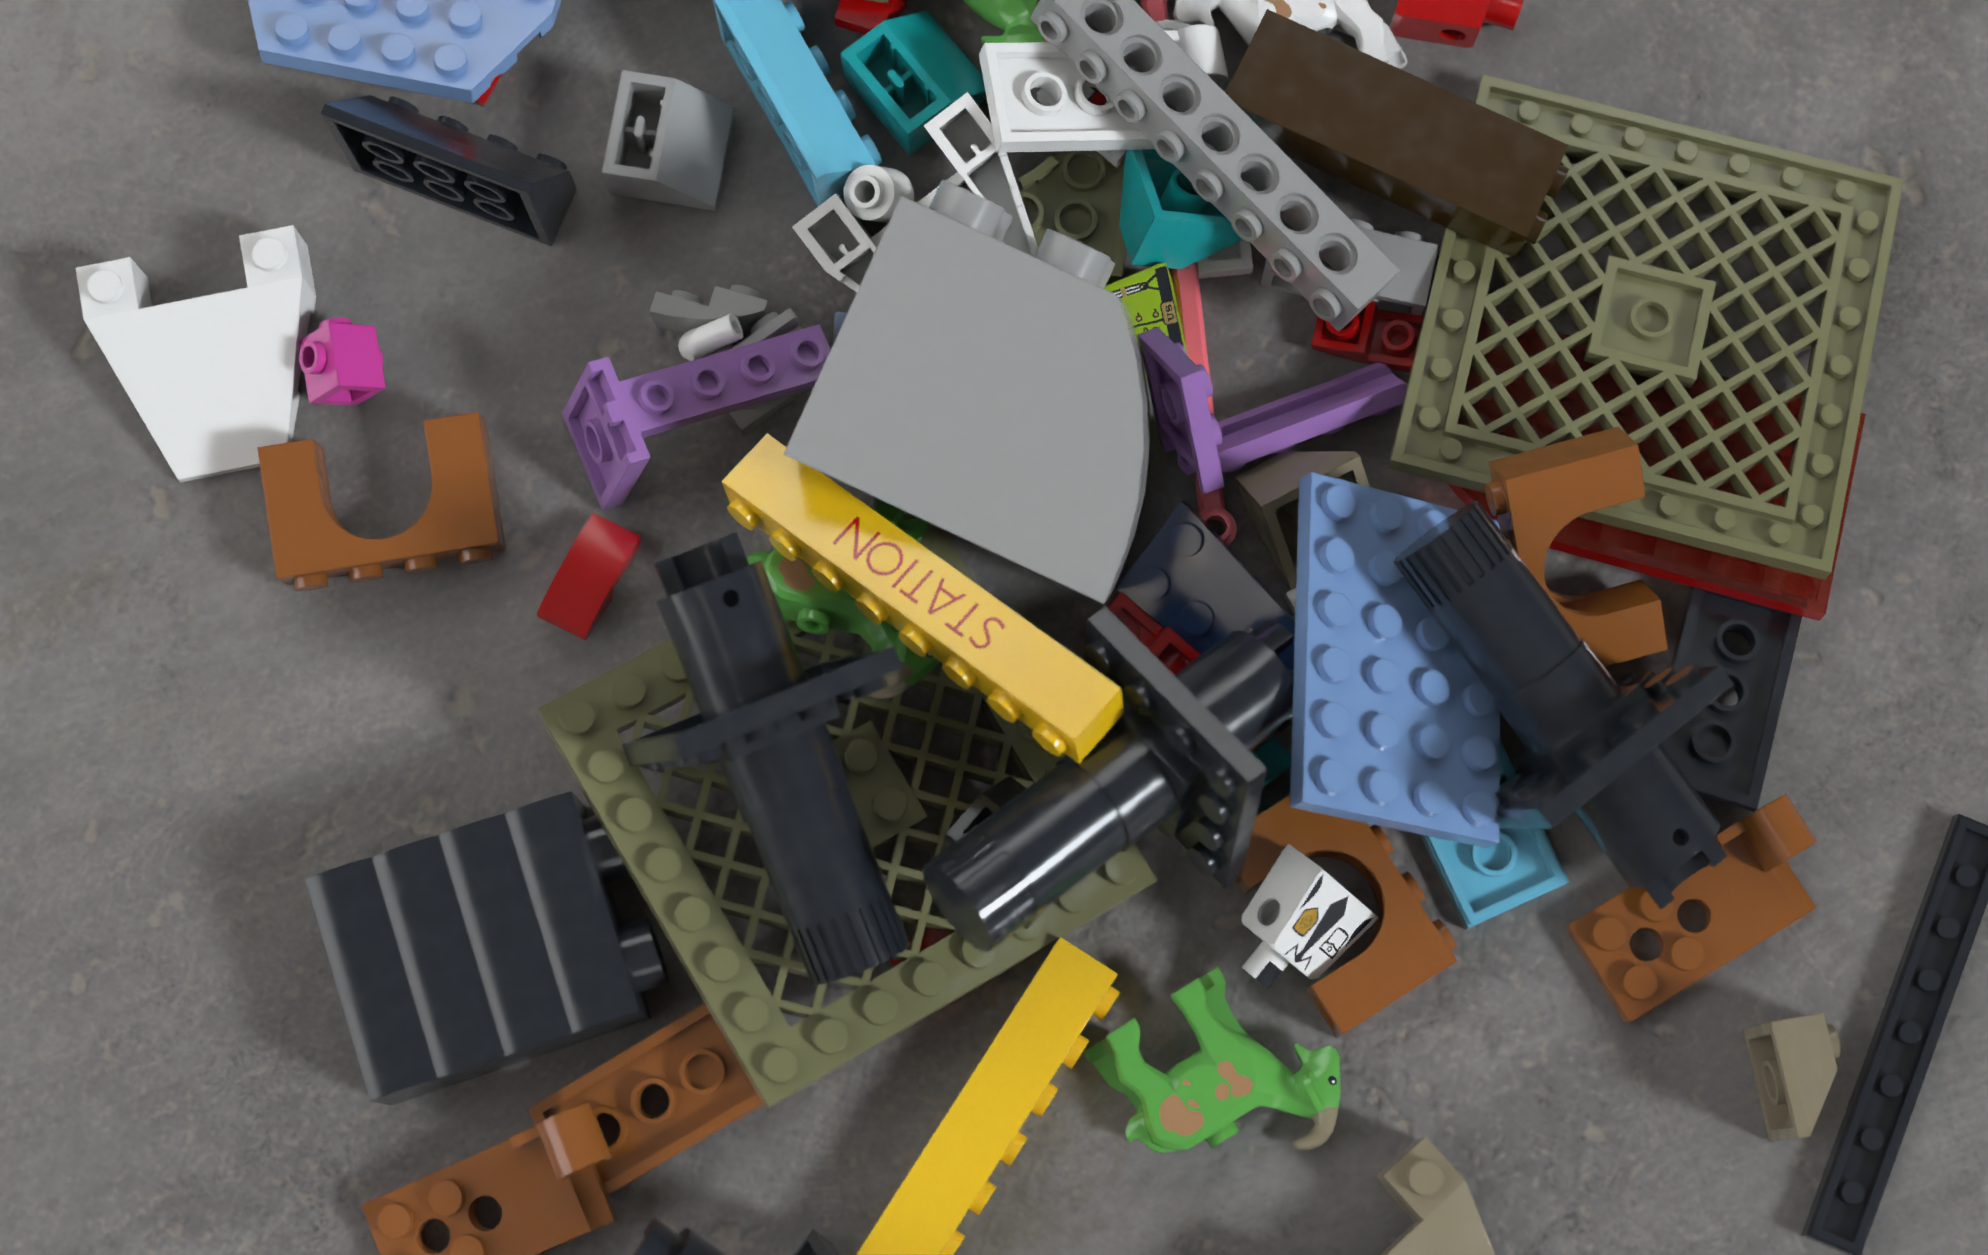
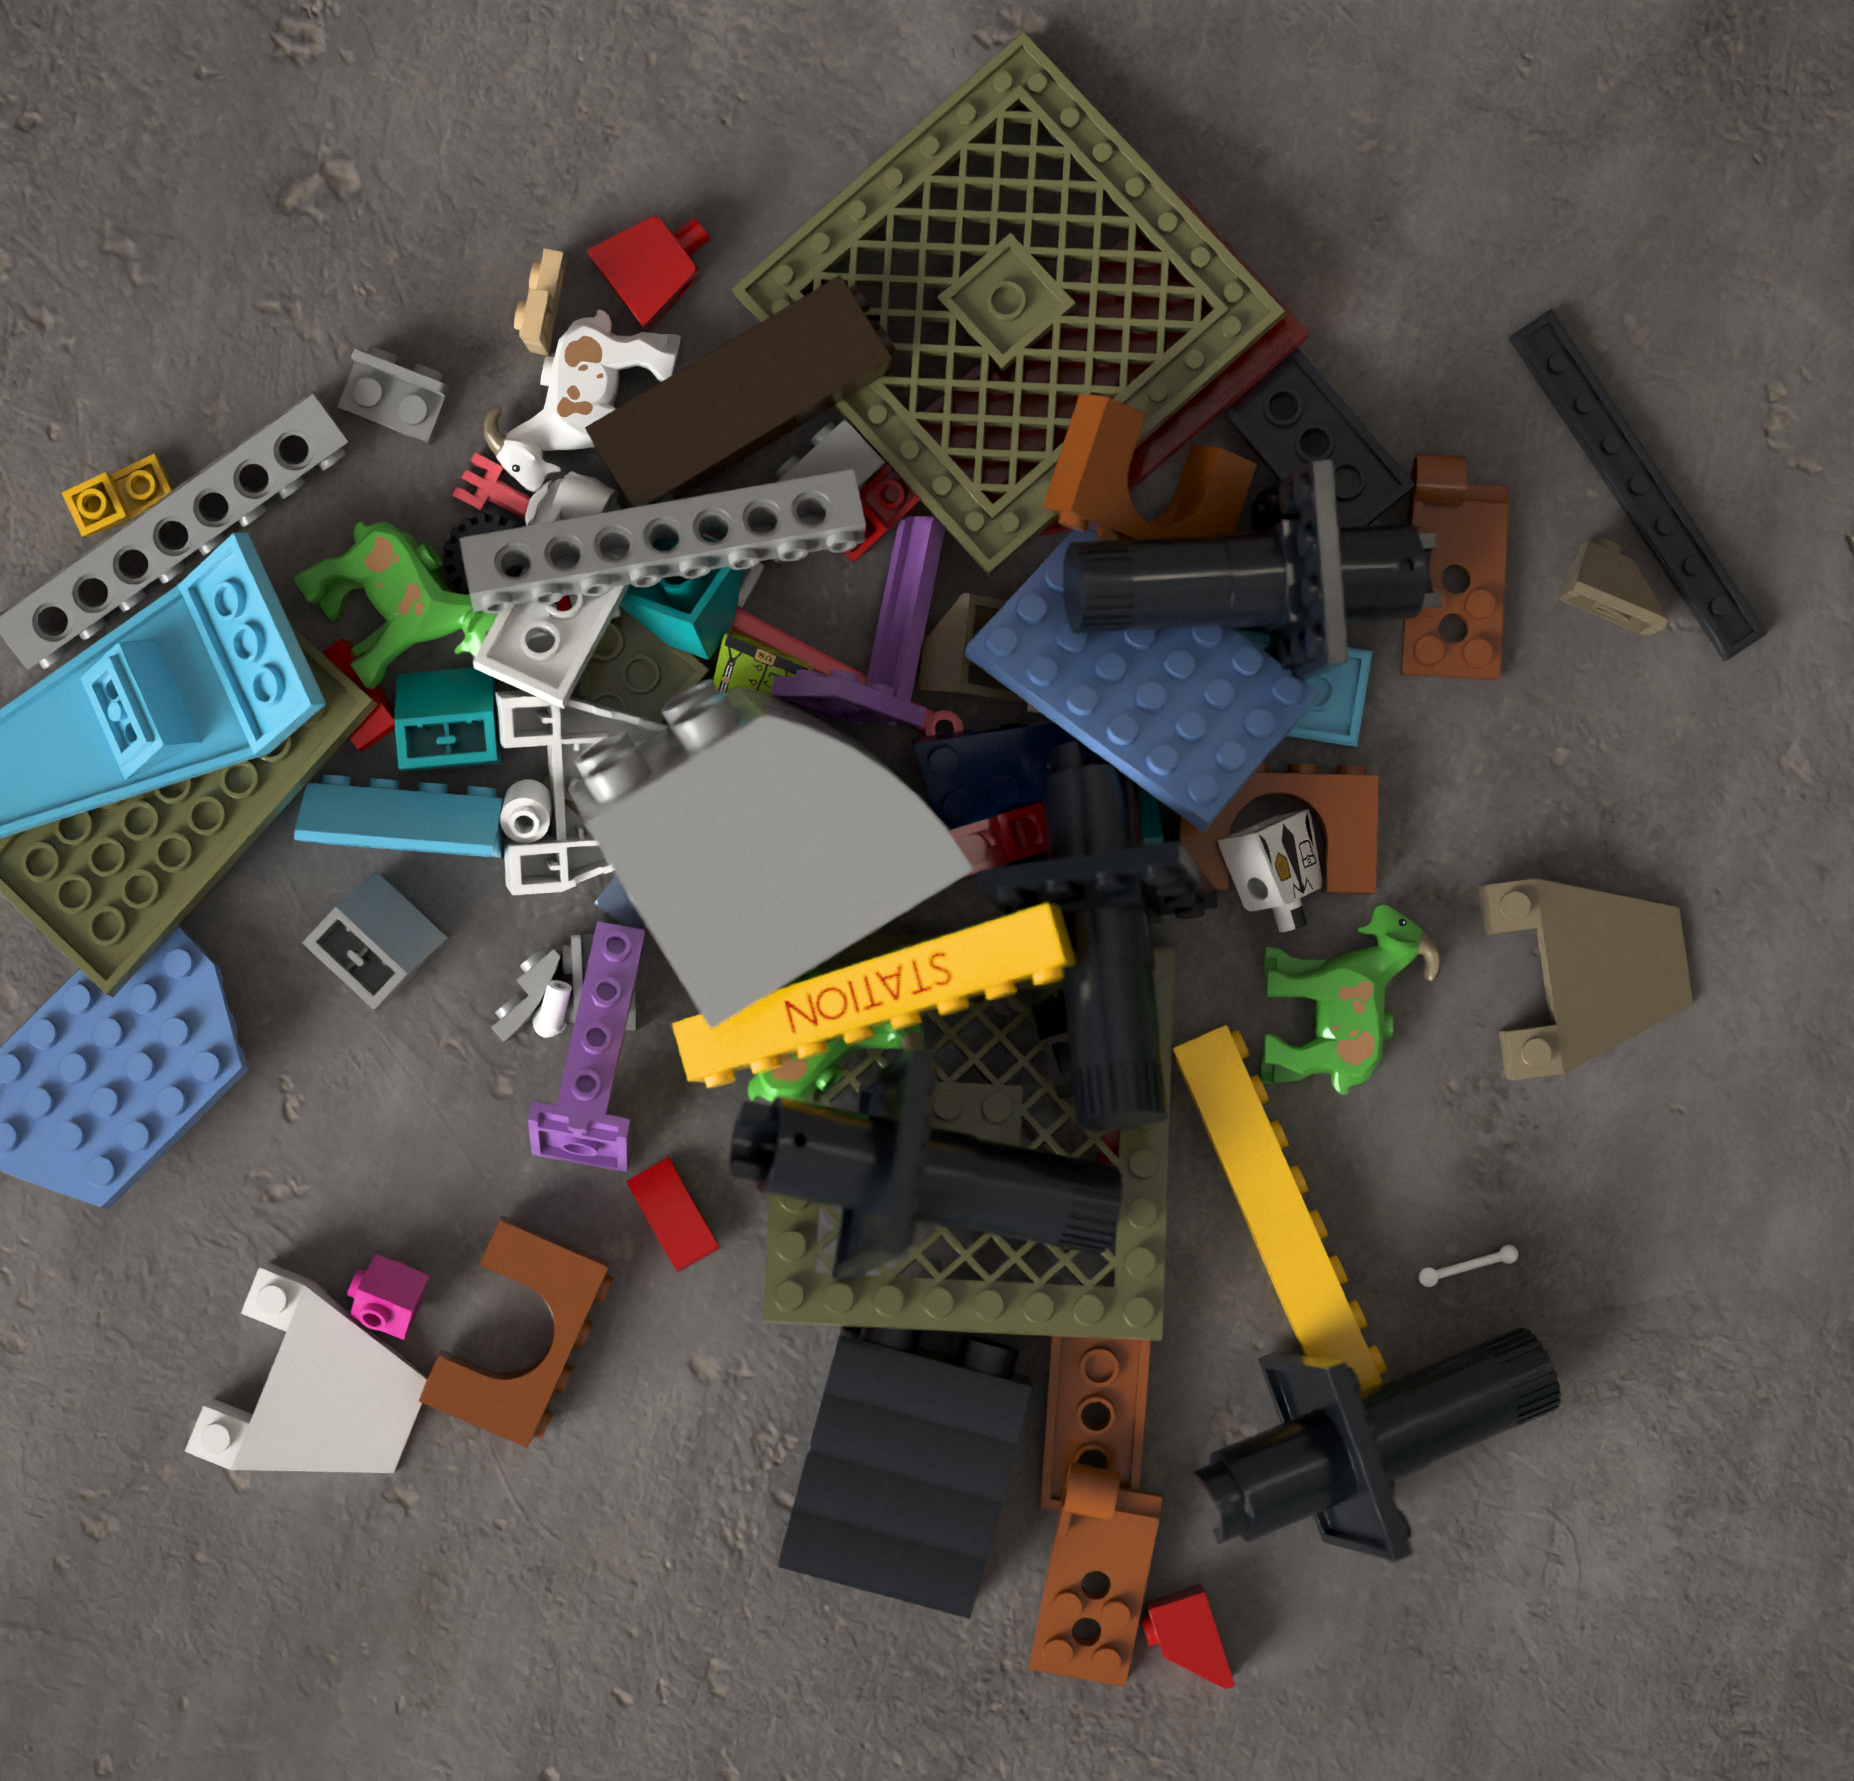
camera: 60 degrees left, 10 degrees up
(453, 166) = (286, 1113): black slope -> none

